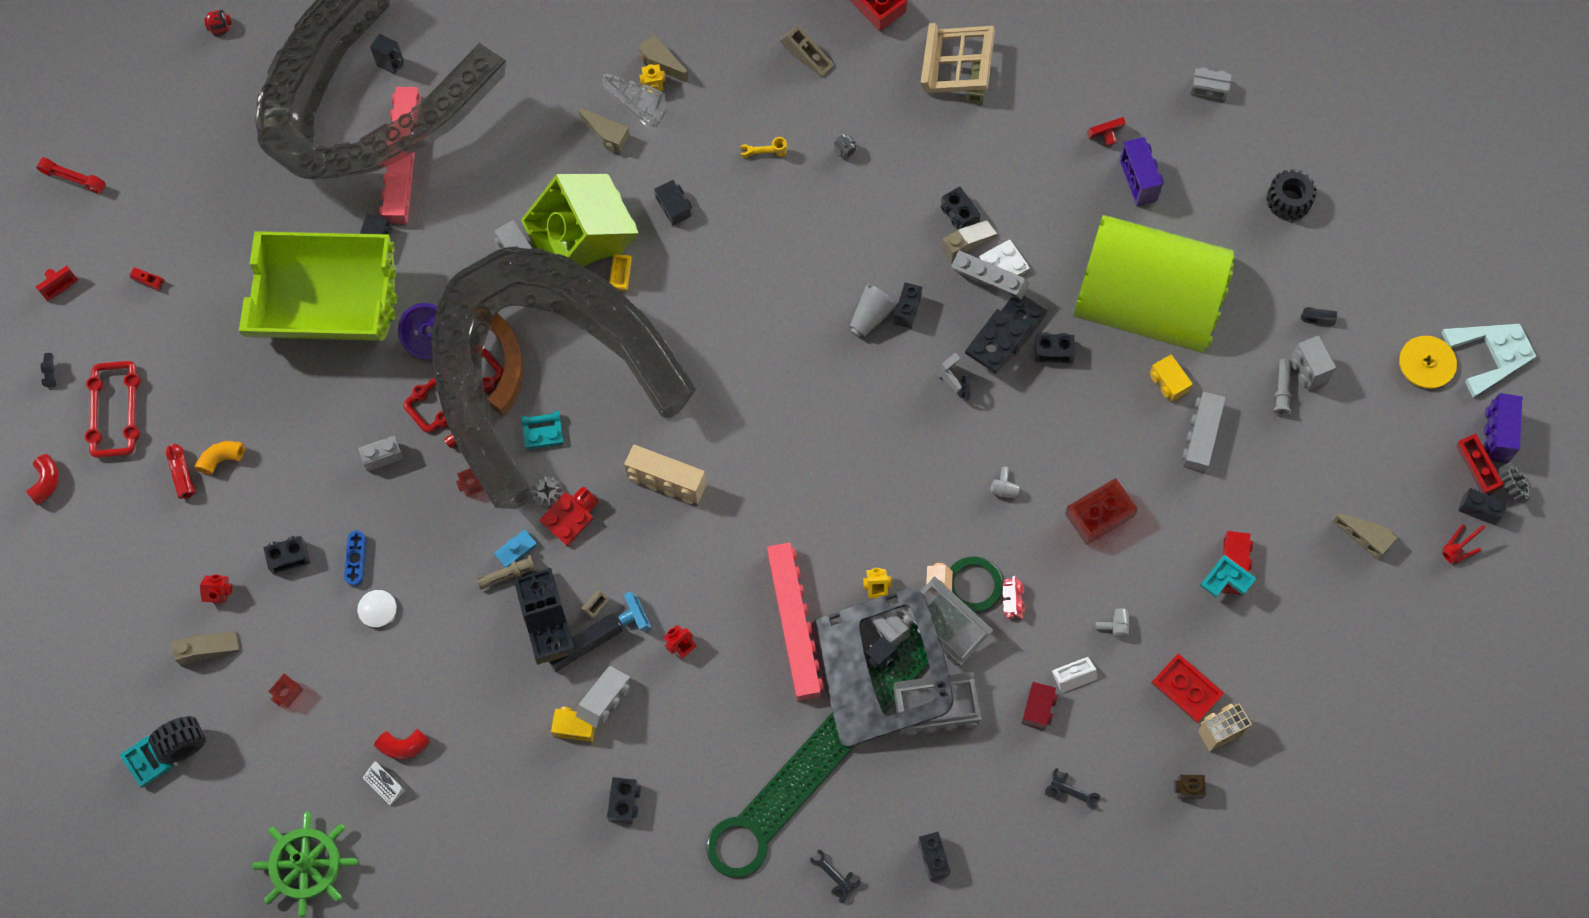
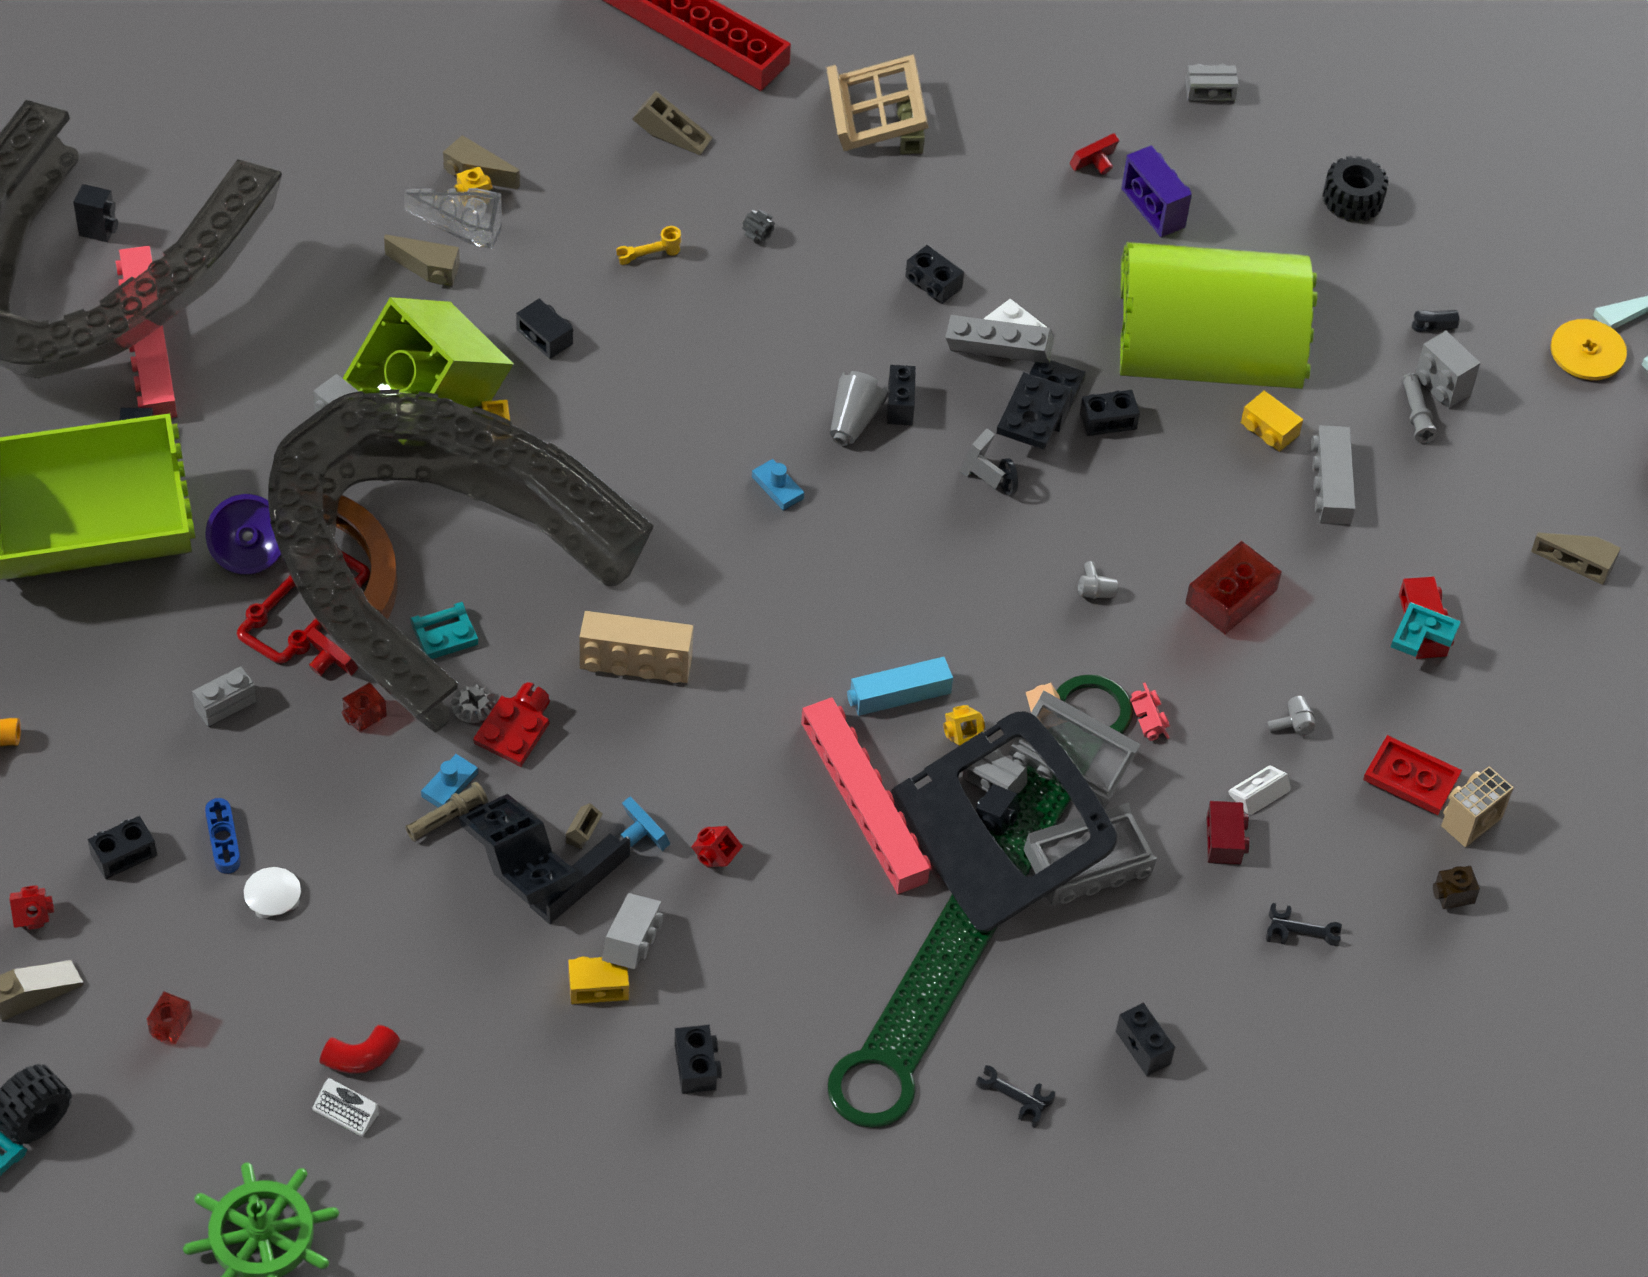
camera: 20 degrees left, 15 degrees down
(802, 359) = (778, 484): none -> dark azure tile
(842, 540) = (900, 686): none -> medium azure brick
(967, 239) = (958, 301): dark tan slope -> none

